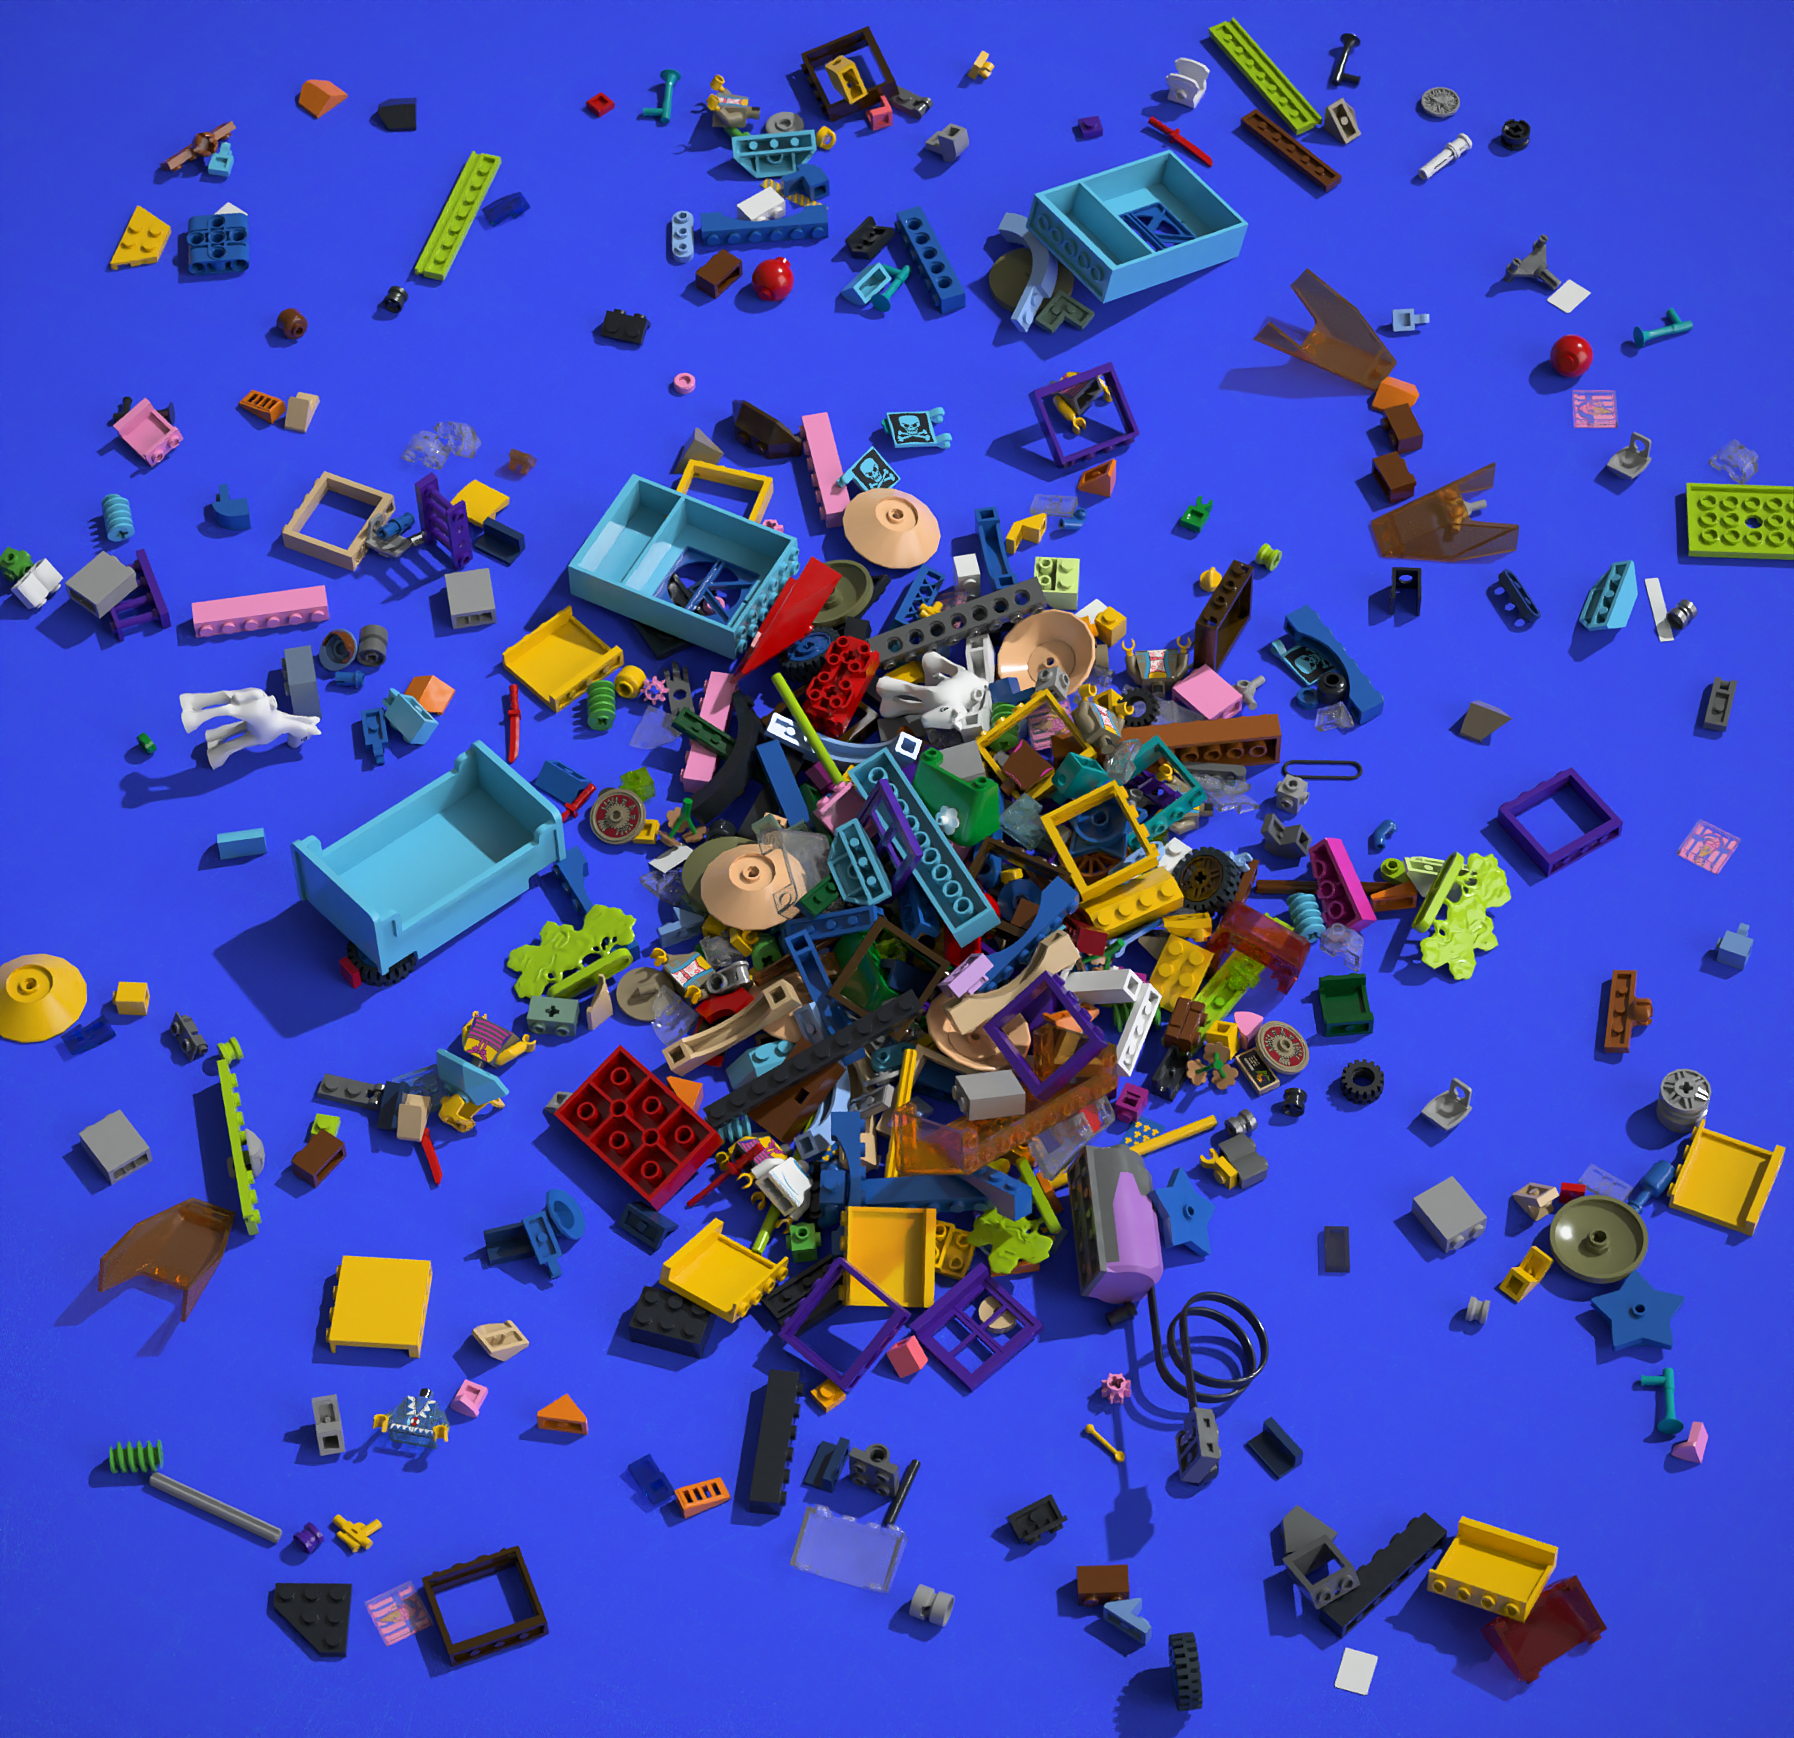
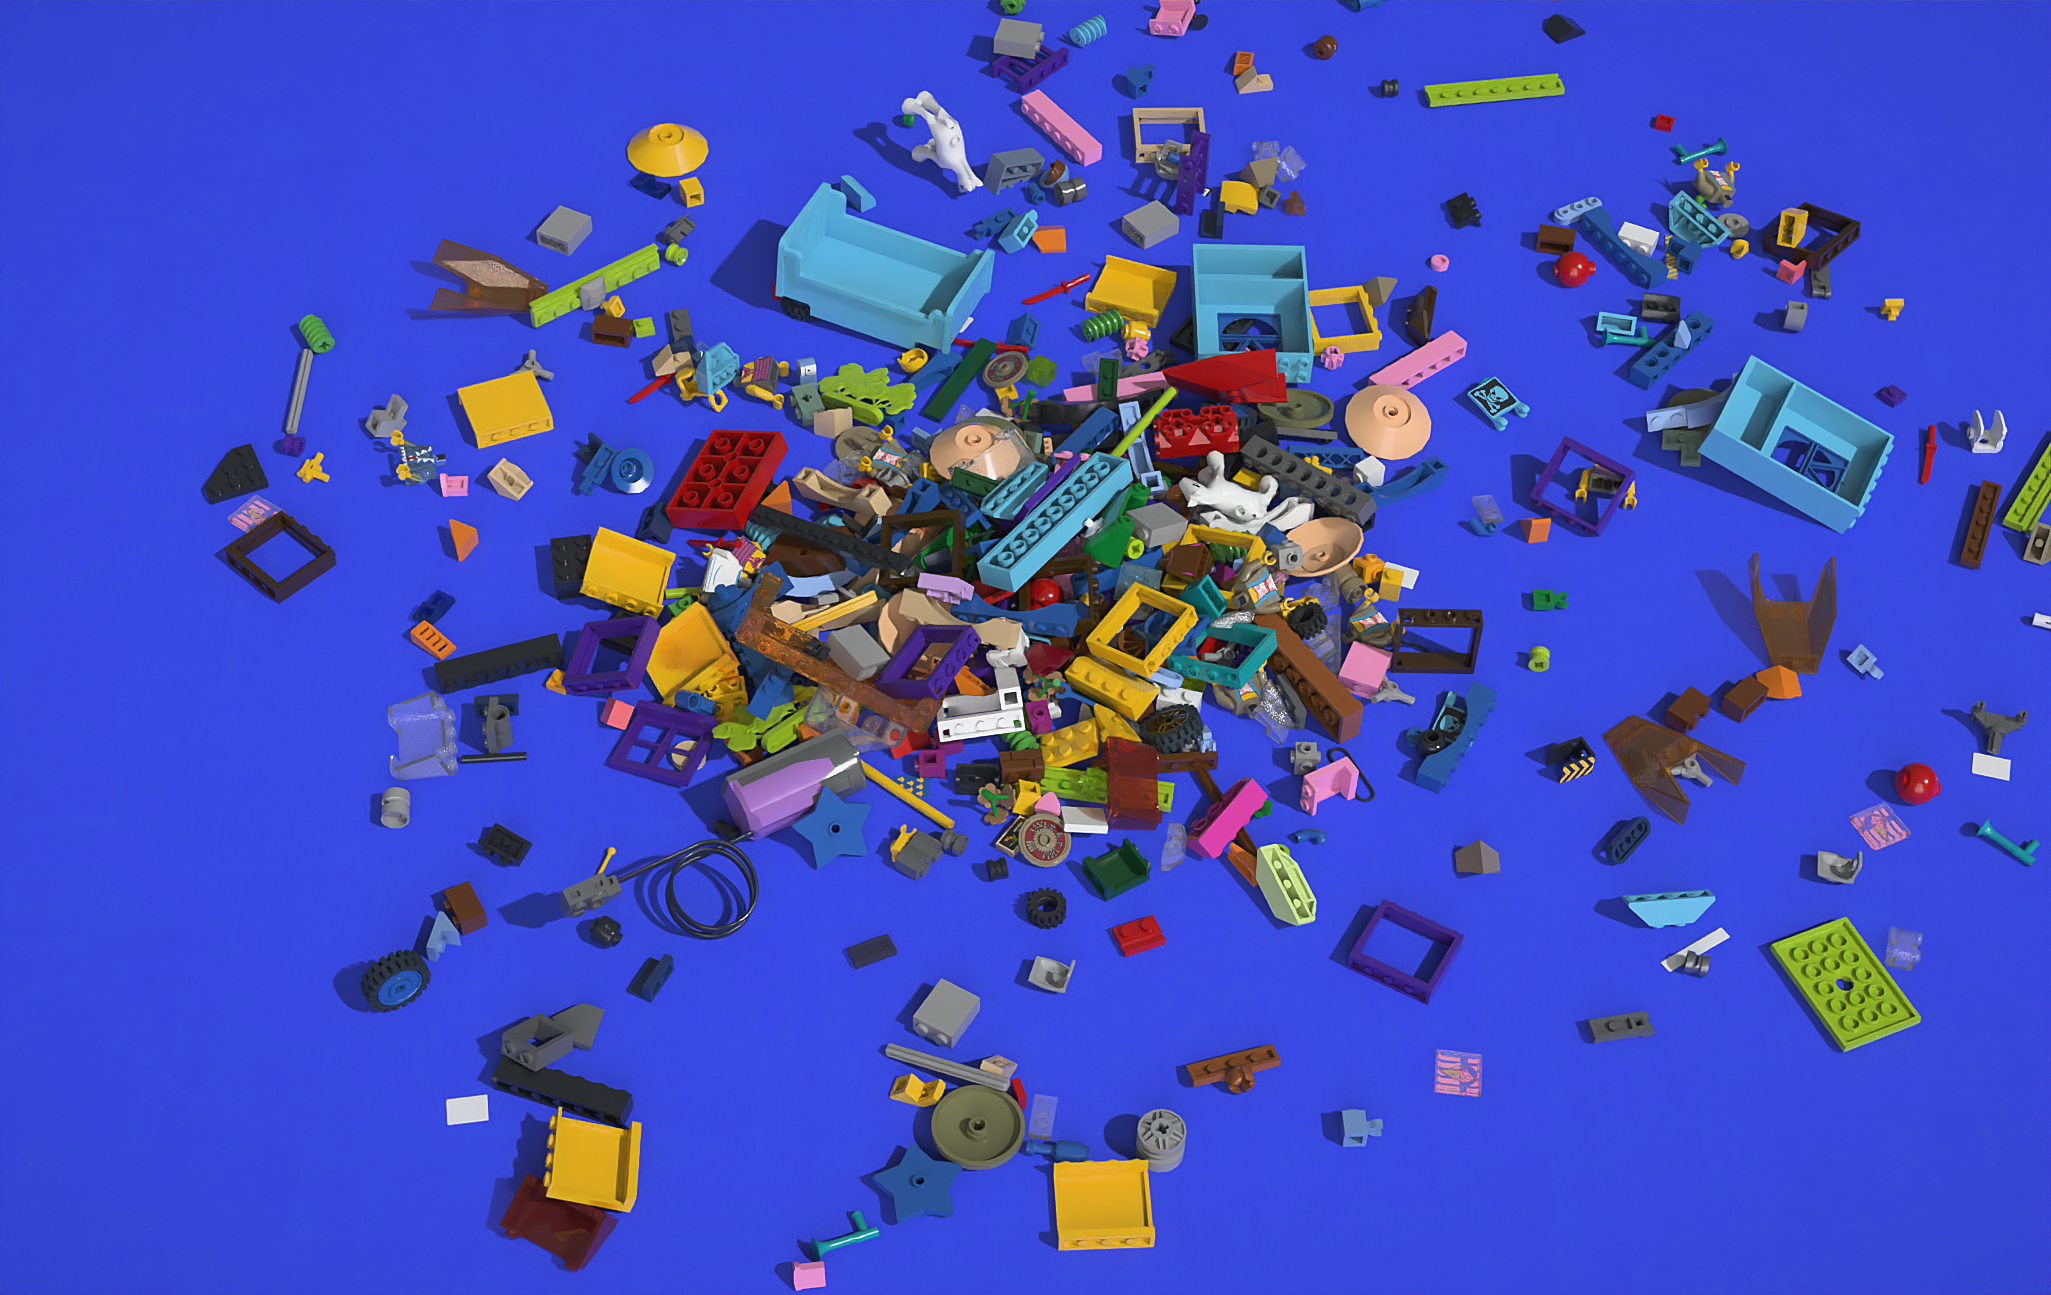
camera: 60 degrees right, 5 degrees down
(37, 584) = (996, 12): white brick -> none
(280, 1146) = (613, 307): none -> yellow tile
(328, 1259) = (532, 364): none -> light grey piece
(460, 468) = (1260, 172): none -> dark tan slope
(496, 478) = (1268, 196): none -> dark grey slope
(510, 998) = (806, 371): none -> medium blue leg
(512, 205) = (1523, 110): clear blue slope -> none
(547, 893) = (913, 360): none -> yellow hair
(602, 865) = (960, 380): none -> dark green tile
(804, 1027) = (856, 527): none -> black bracket
(870, 472) = (1429, 388): flag -> none
(930, 241) = (1682, 336): none -> light blue slope
(949, 1274) = (695, 702): none -> blue piece
(982, 1123) = (816, 649): none -> black wheel
(1027, 529) = (1442, 496): yellow slope -> none
(1059, 581) = (1410, 536): yellowish green slope -> none
(1116, 1388) = (653, 850): bright pink gear -> none
(1210, 579) = (1490, 633): yellow tile -> none
(1276, 1002) = (1083, 819): none -> white tile
(1284, 841) = (1255, 764): dark grey brick -> none
(1306, 916) = (1186, 809): medium azure piece -> none
(1333, 717) = (1405, 760): clear tile -> none
(1341, 776) = (1328, 781): none -> bright pink panel
(1430, 1022) = (1138, 936): none -> red plate
(1466, 920) = (1248, 917): lime plant -> none
(1478, 1310) = (860, 1067): light grey wheel -> none
(1517, 1236) = (948, 1067): none -> light grey axle

